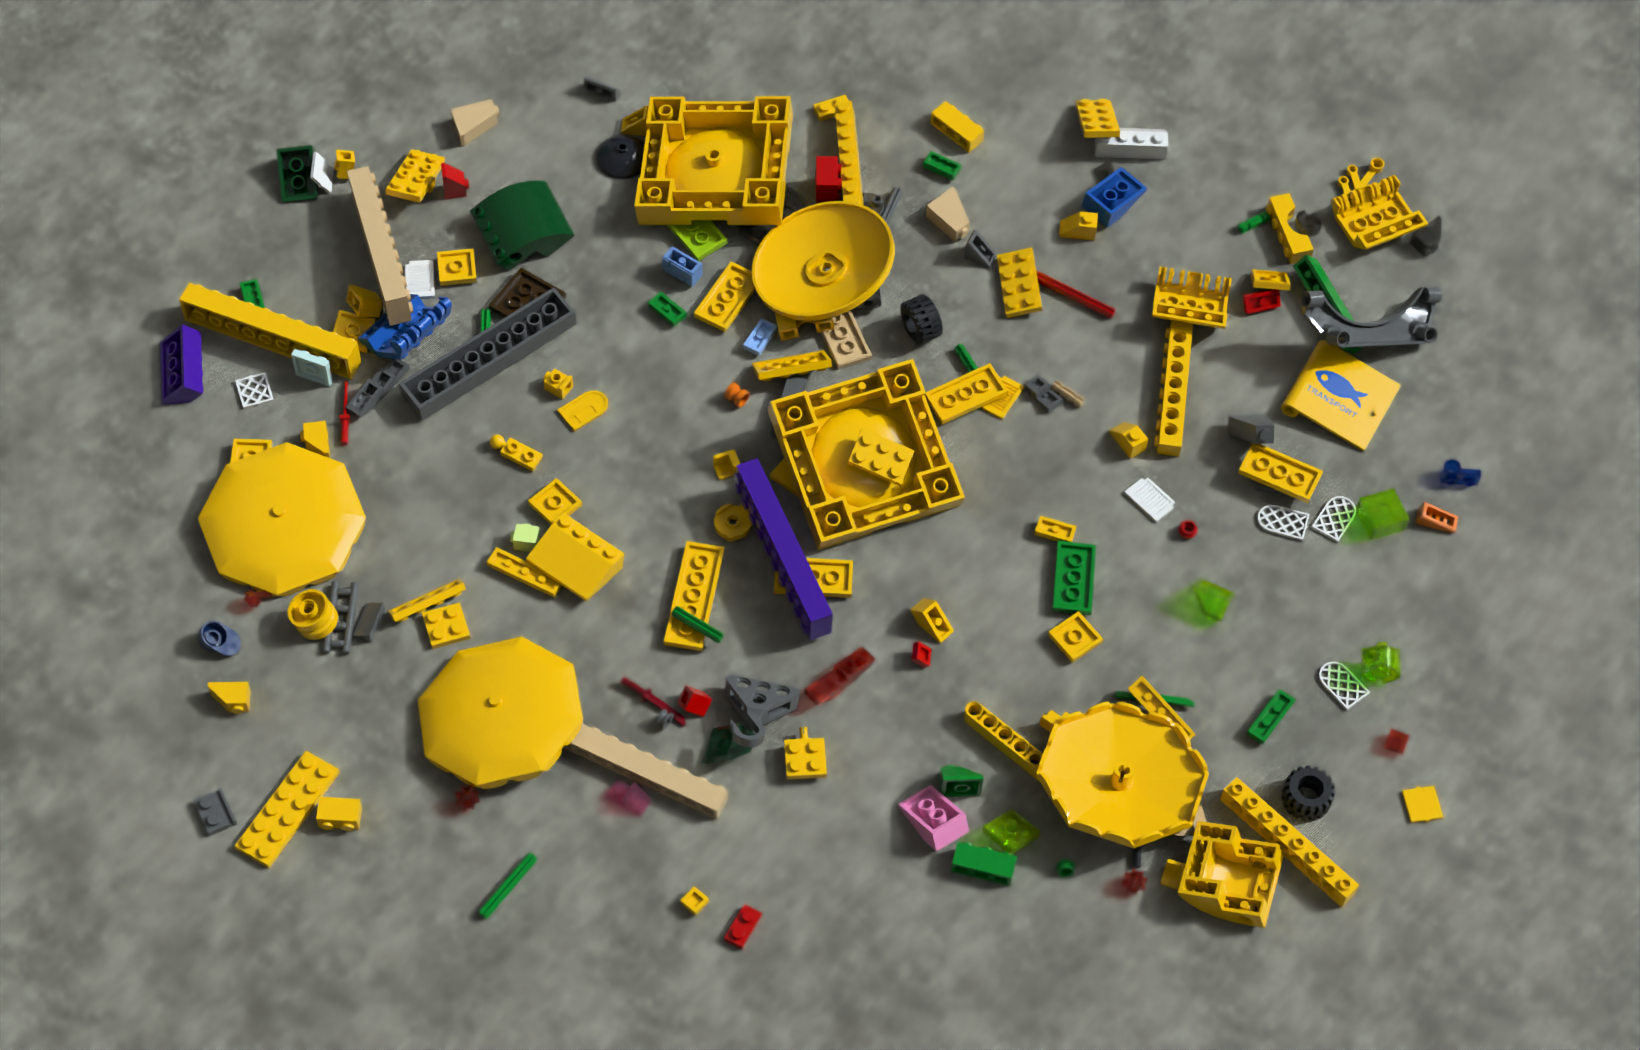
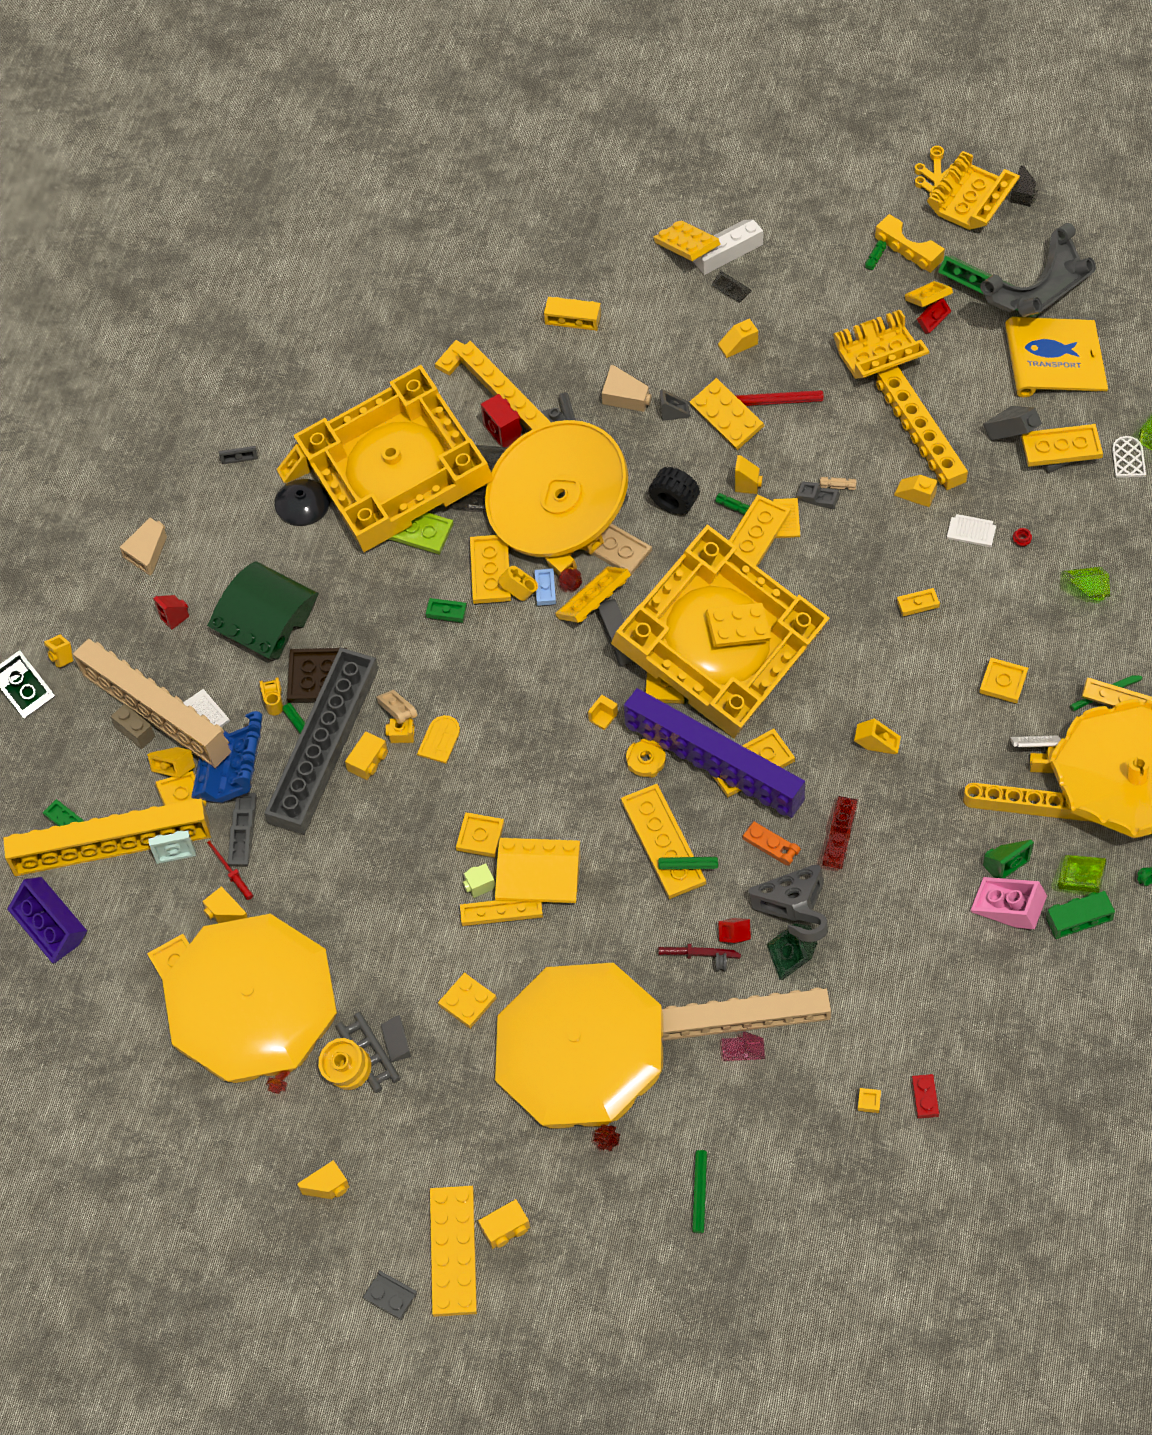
camera: 25 degrees left, 0 degrees up
(219, 637) = (272, 1139): dark blue cap -> none
(257, 401) = (150, 898): white window -> none
(322, 172) = (44, 670): white piece -> none
(356, 256) = (133, 726): none -> dark tan brick
(415, 176) = (132, 624): yellow plate -> none
(433, 597) = (434, 988): yellow plate -> none
(456, 267) = (231, 682): yellow plate -> none
(480, 296) = (271, 693): none -> yellow piece
(515, 387) = (366, 756): none -> yellow brick
(516, 452) = (410, 811): yellow plate -> none
(566, 361) = (396, 706): none -> tan plate
(682, 266) = (432, 565): medium blue brick -> none
(735, 394) = (564, 648): orange wheel -> none
(737, 317) = (518, 583): none -> yellow beam
(779, 651) = (771, 843): none -> orange plate
(784, 342) = (570, 579): none -> clear red gear
(805, 757) = (864, 919): yellow plate -> none
(921, 654) = (891, 772): red plate -> none
(942, 165) = (585, 353): green plate -> none
(992, 342) = (747, 476): none -> yellow slope
(1059, 701) = (1035, 741): none -> white window
(1074, 578) = (964, 632): green plate -> none
(1113, 196) = (749, 297): blue slope -> none
(1277, 531) = (1092, 496): white window -> none
(1307, 224) = (921, 231): clear smoke hair -> none

